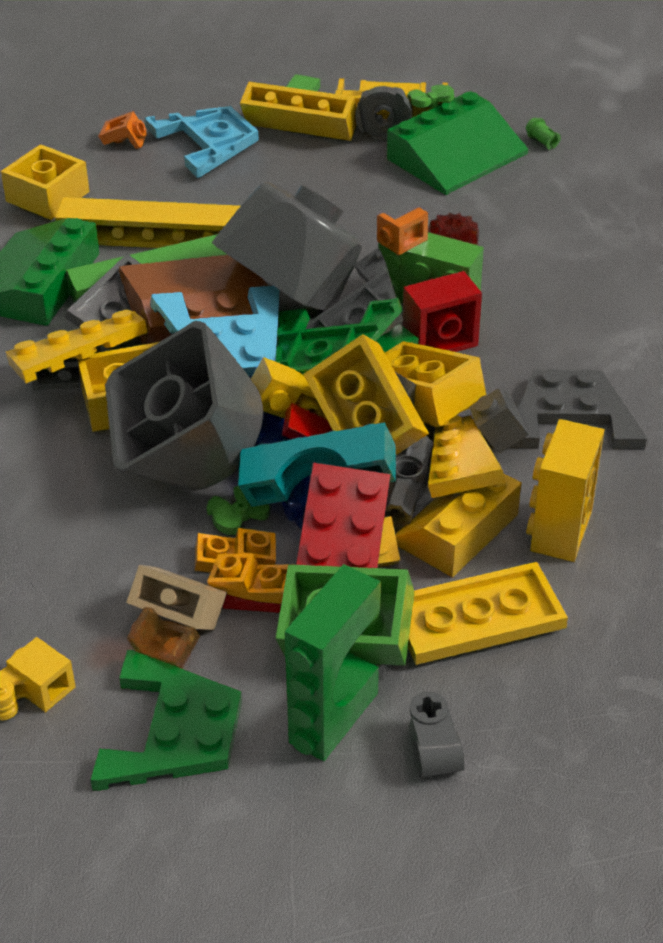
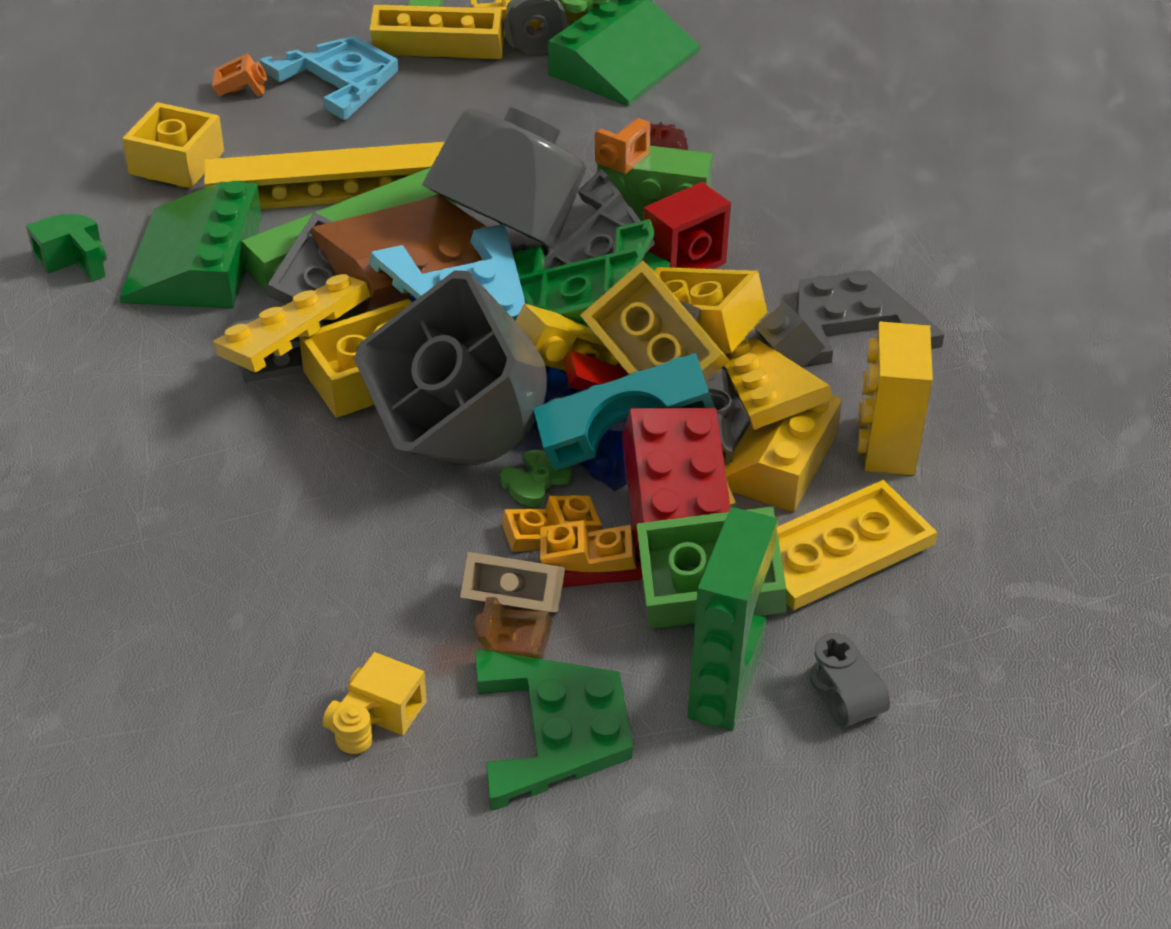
camera: 15 degrees left, 0 degrees up
(537, 129) = (704, 23): bright green pin -> none

